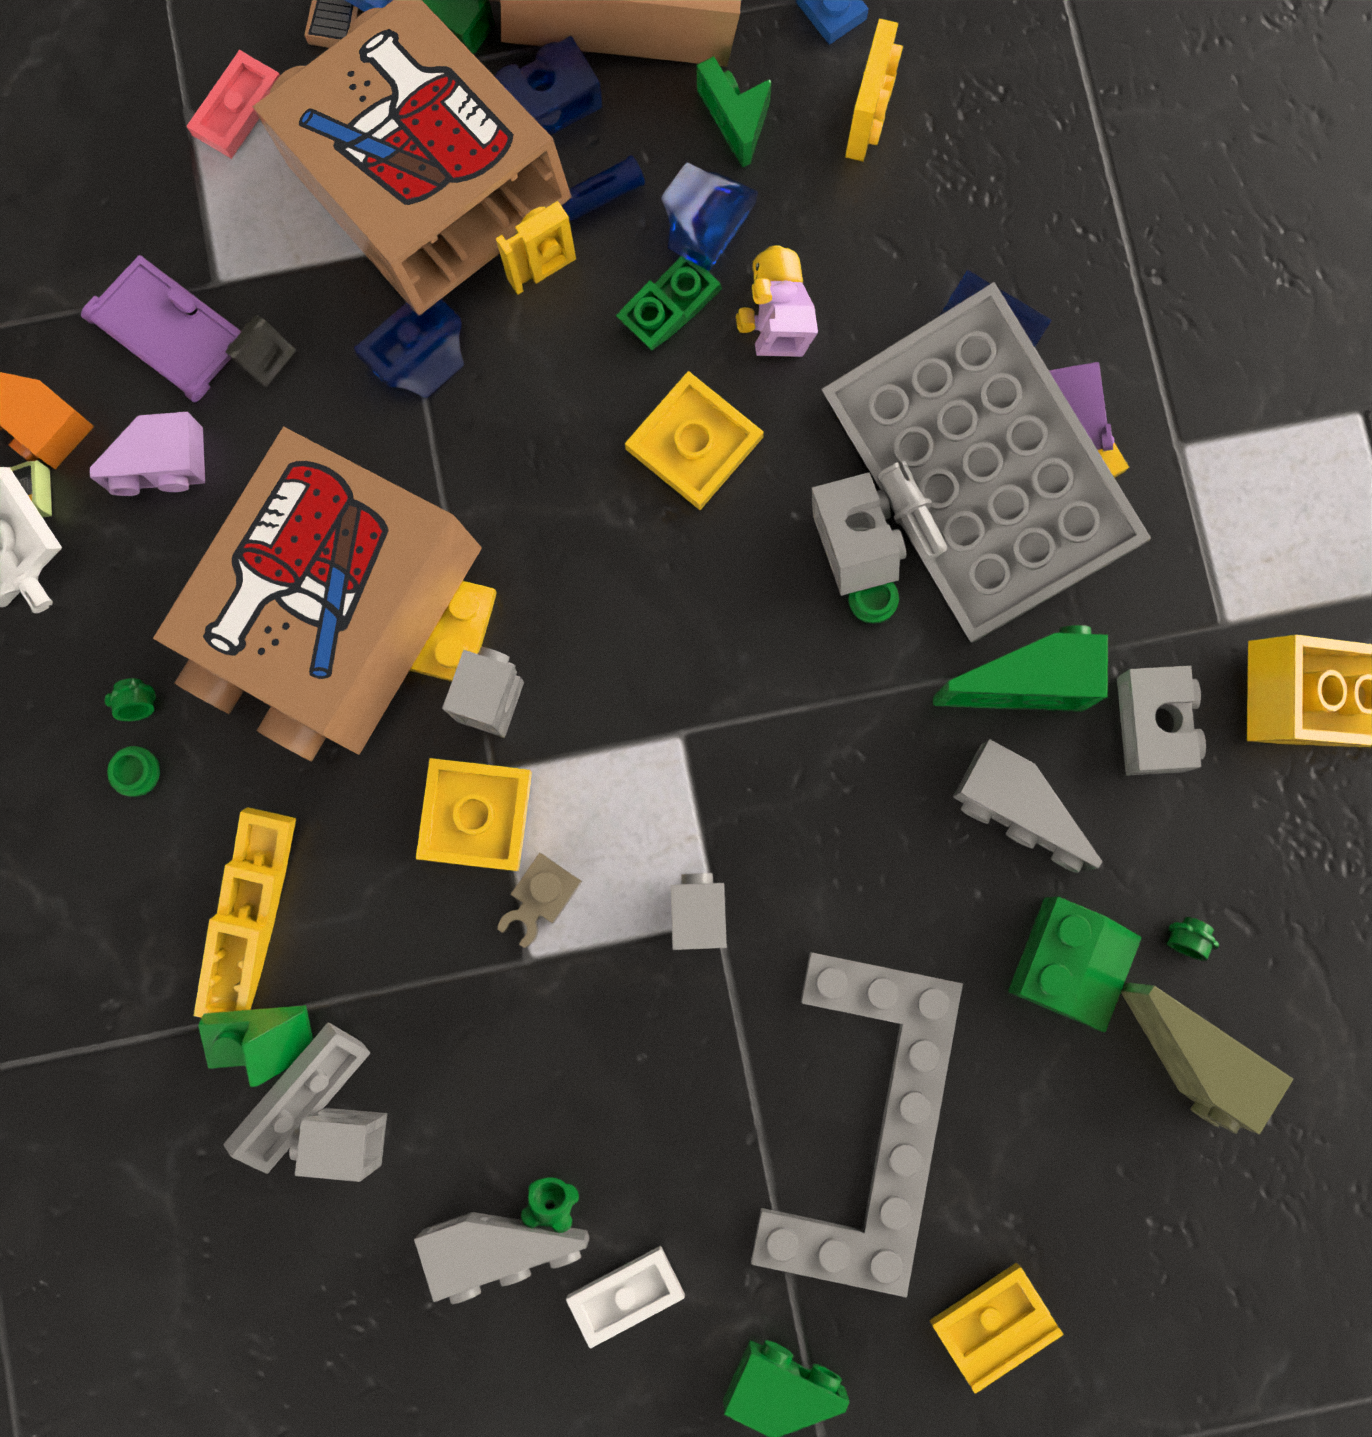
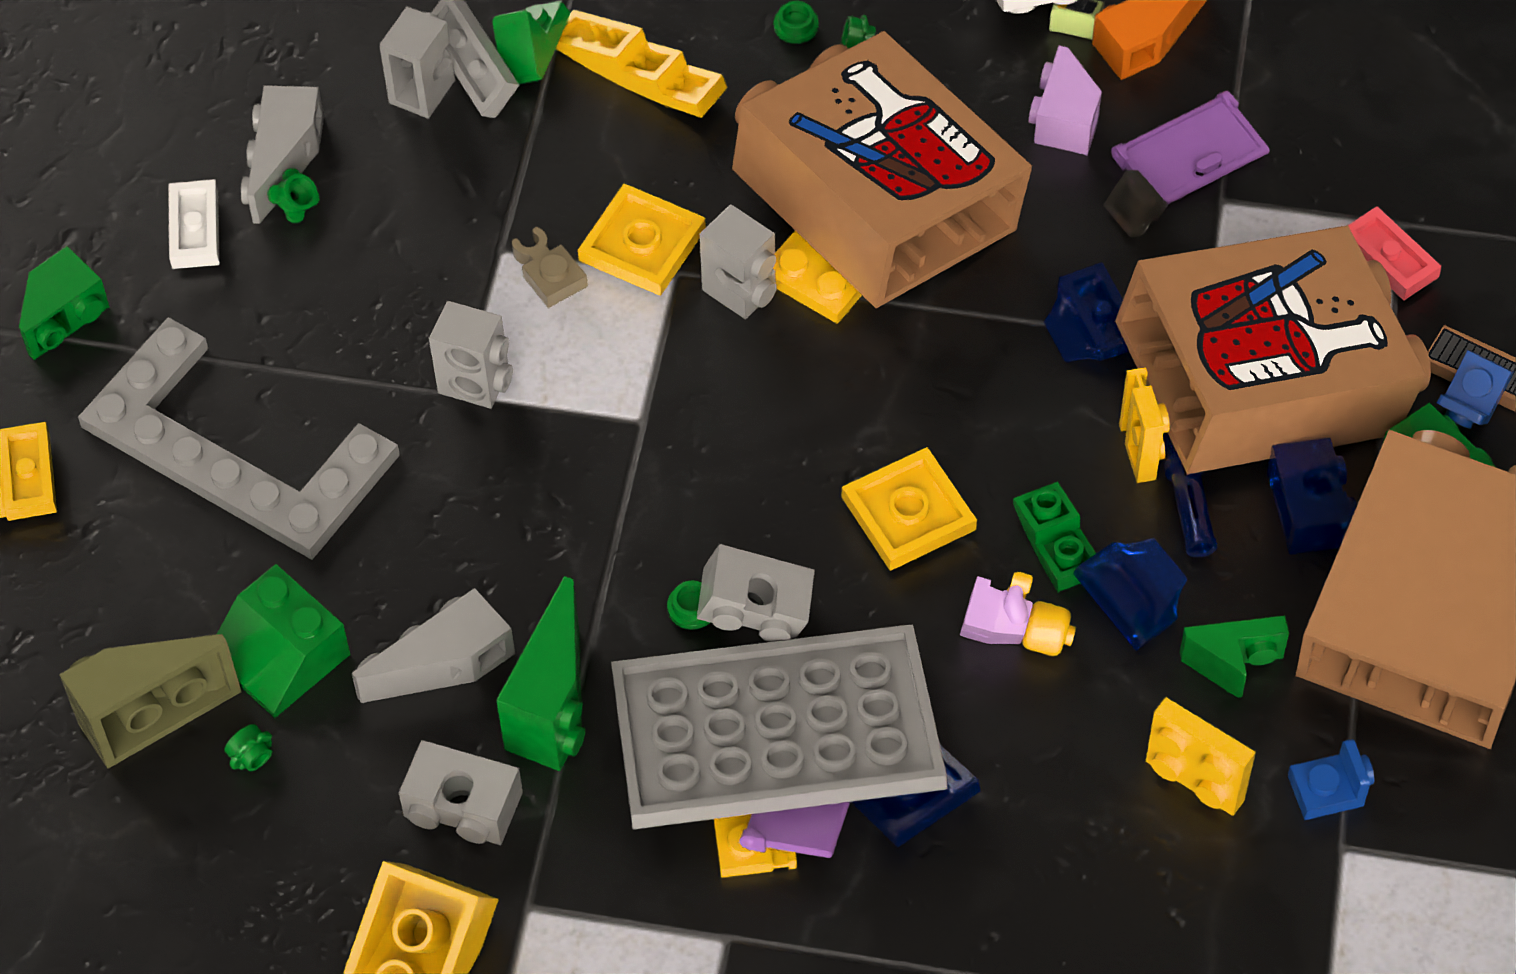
camera: 110 degrees right, 25 degrees down
(912, 510) = (752, 642): light grey axle -> none

